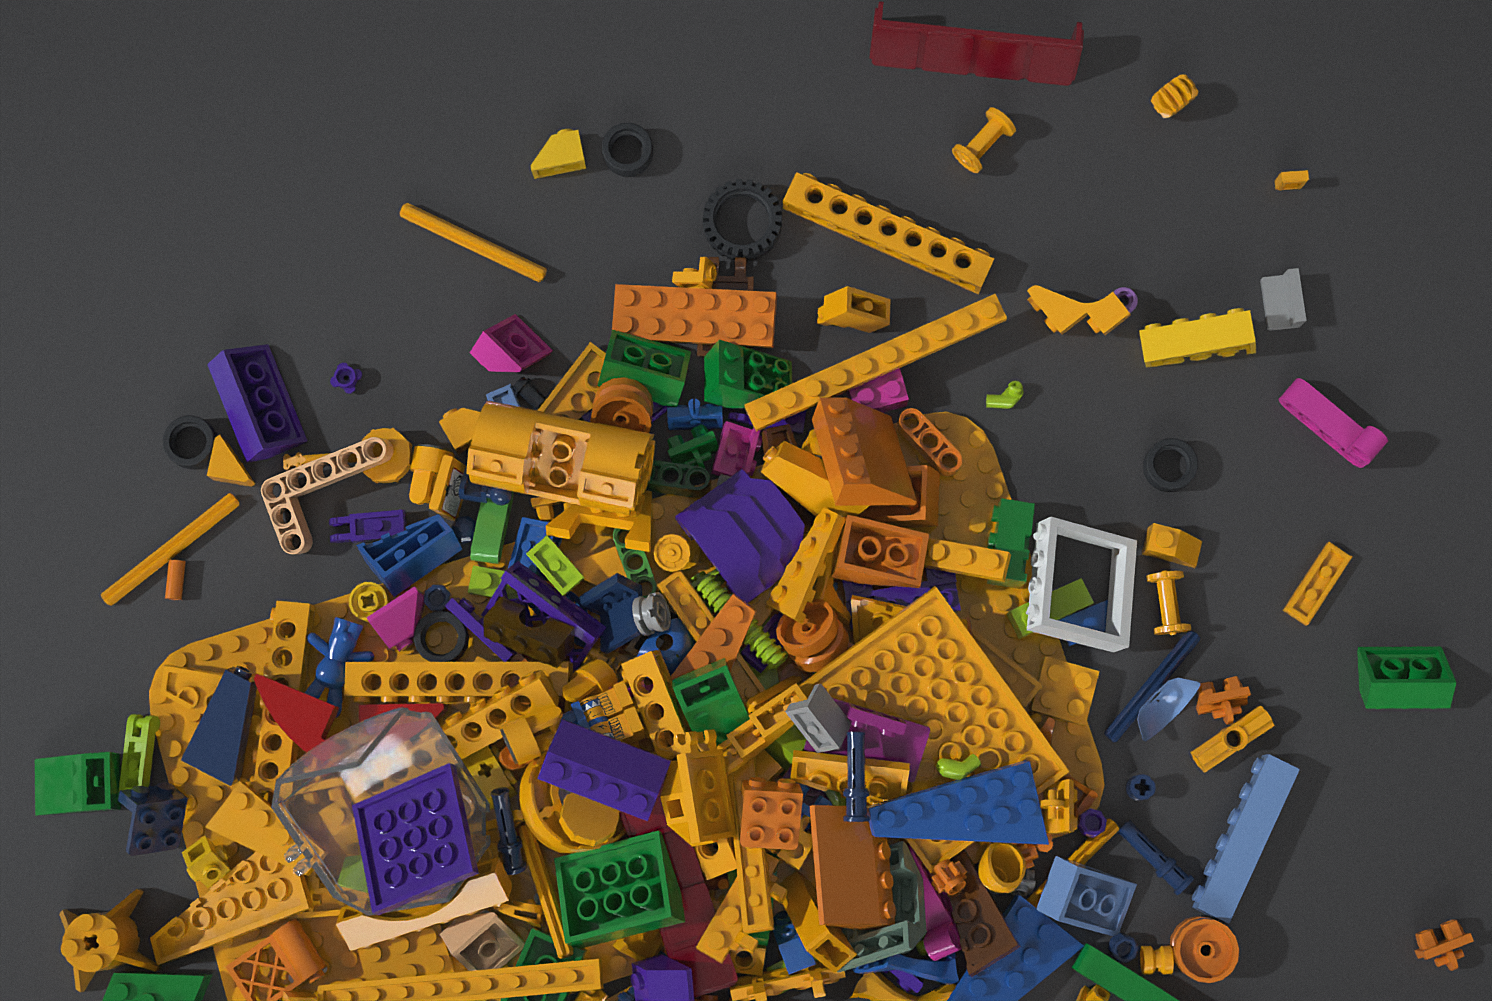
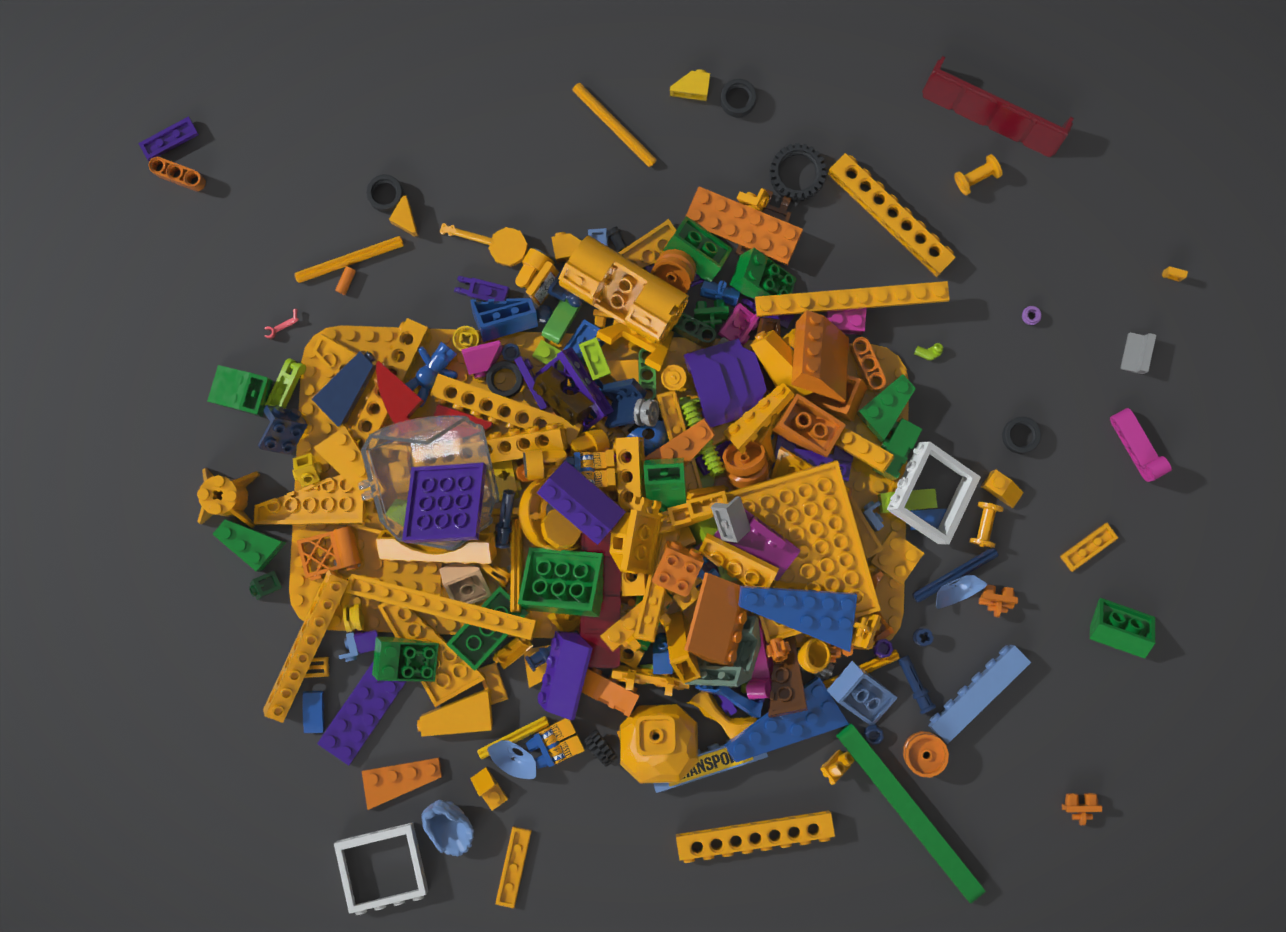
camera: 20 degrees right, 5 degrees up
(107, 673) = (283, 325): none -> coral piece
(256, 402) = (436, 182): dark purple slope -> none
(315, 481) = (457, 248): light nougat beam -> none
(342, 371) = (500, 180): dark purple plate -> none
(509, 346) = (614, 203): dark pink slope -> none
(855, 309) = (851, 259): light orange hinge -> none
(856, 793) = (738, 574): dark blue pin -> none
(956, 769) = (808, 583): lime arm -> none
(975, 491) = (886, 407): none -> green wedge
(1013, 649) = (872, 518): none -> medium blue bracket
(1065, 312) = (990, 310): light orange arch -> none
(1158, 959) = (891, 749): light orange wheel -> none
(1174, 96) = (1117, 189): light orange gear -> none
(1198, 338) = (1071, 358): yellow wedge -> none
(1246, 729) = (983, 629): light orange piece -> none

